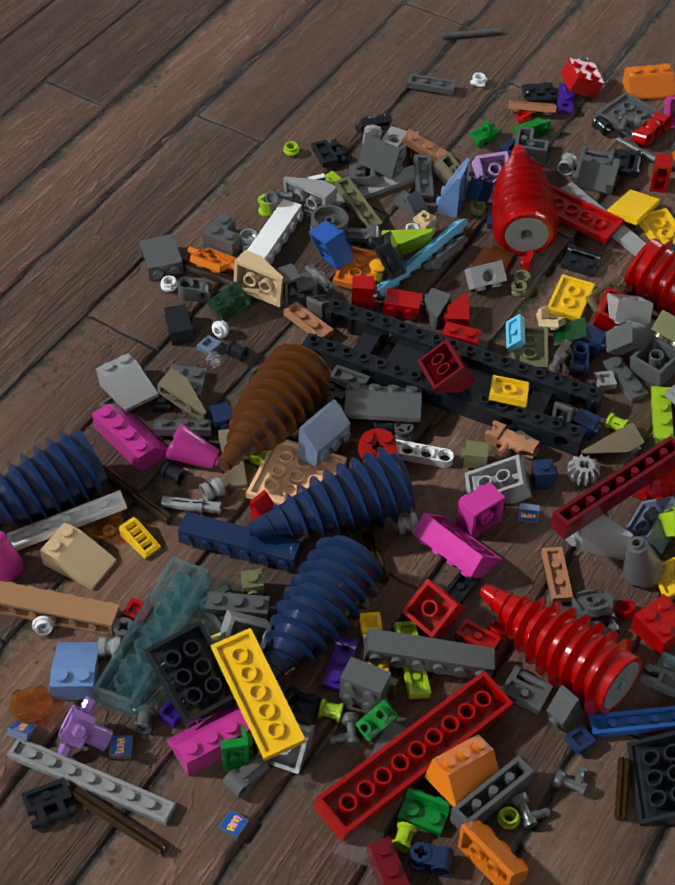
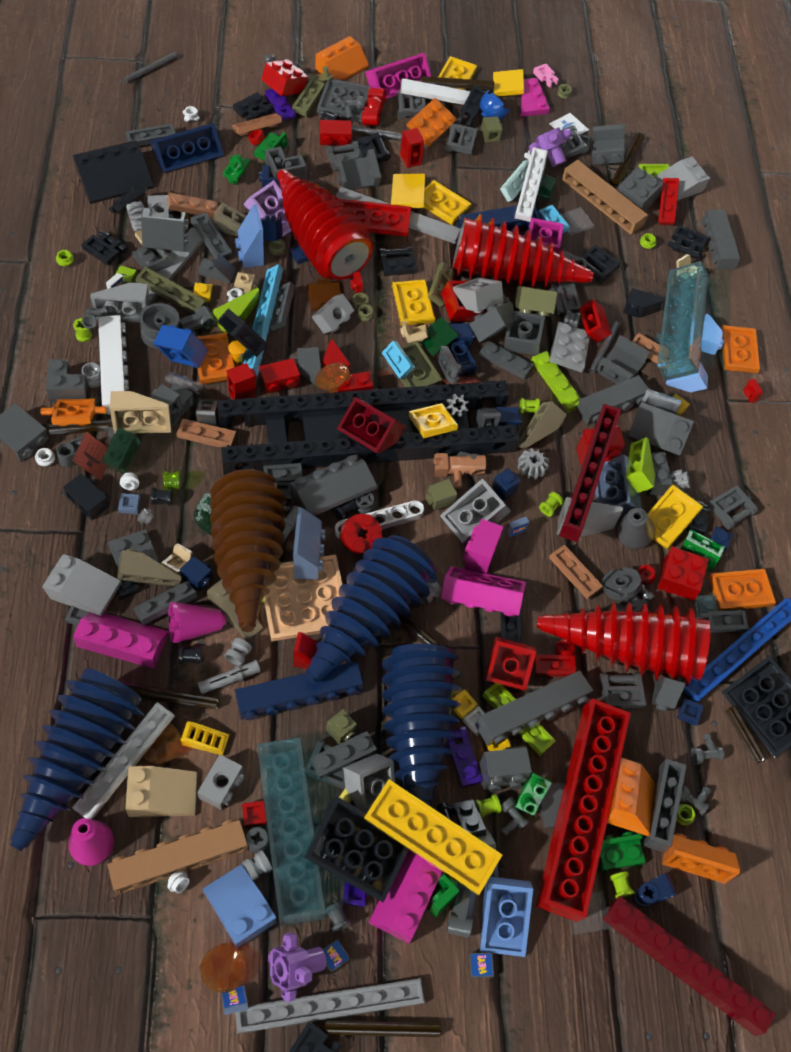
camera: 40 degrees left, 10 degrees up
(117, 574) = (222, 769): none -> light grey brick
(199, 295) = (90, 456): none -> clear red sticker
(209, 400) = (178, 558): none -> tan bracket
(254, 342) = (171, 480): none -> clear neon green wheel
(281, 799) = (506, 916): none -> medium blue slope
(376, 96) = (112, 171): none -> black slope
(387, 216) = (203, 291): none -> yellow plate
(443, 319) = (332, 376): none -> clear orange dish
(455, 103) = (187, 147): none -> dark blue slope
(544, 391) = (459, 400): none -> light grey gear
(567, 164) = (326, 170): light grey wheel -> none
(595, 101) = (308, 97): none -> olive plate
(598, 137) = (335, 132): none -> red brick
(605, 380) = (493, 369): light grey plate -> none
(624, 89) = (320, 77): none -> olive piece

